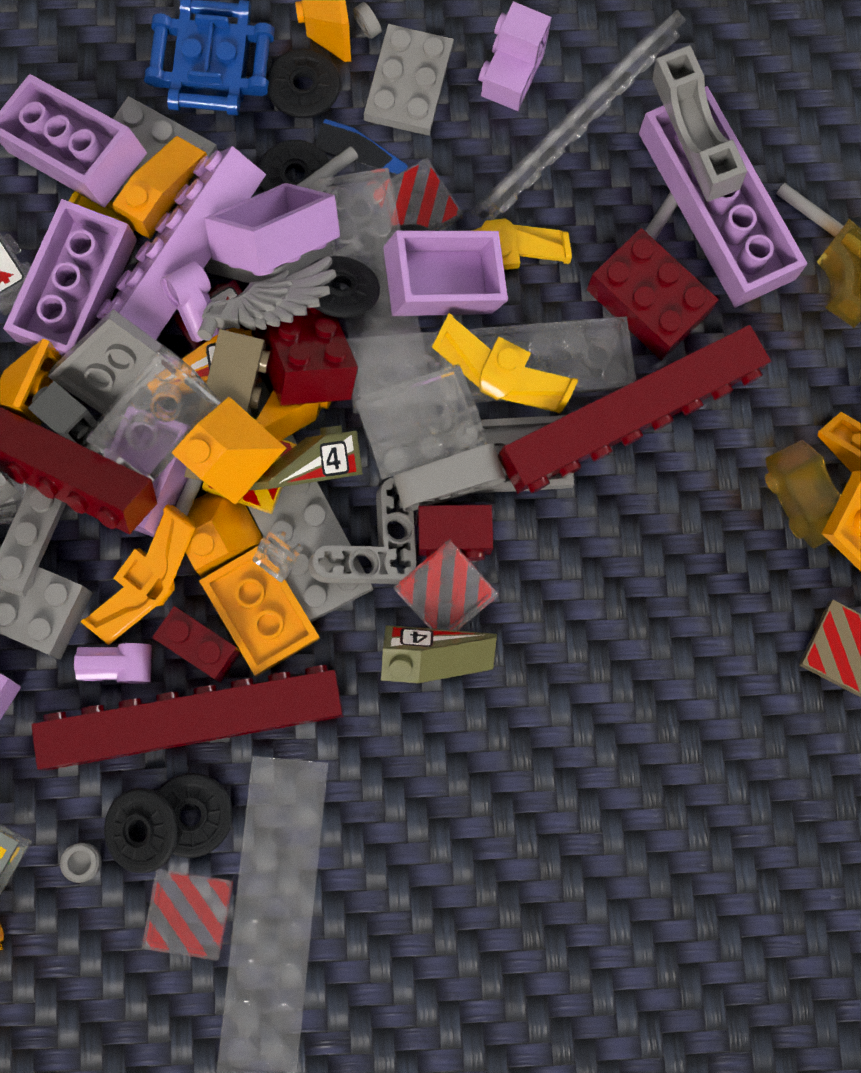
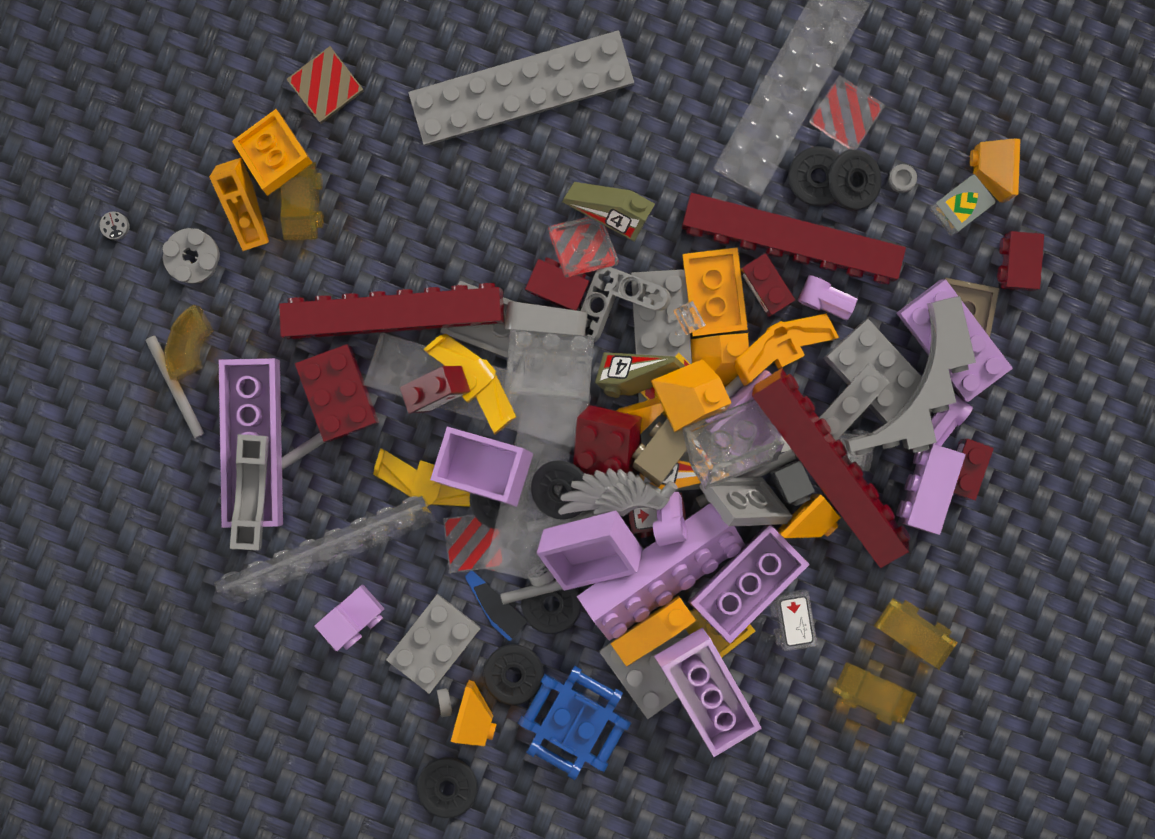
camera: 150 degrees left, 10 degrees up
(542, 330) = (435, 389): none -> dark red brick
(610, 757) = (521, 88): none -> light grey plate

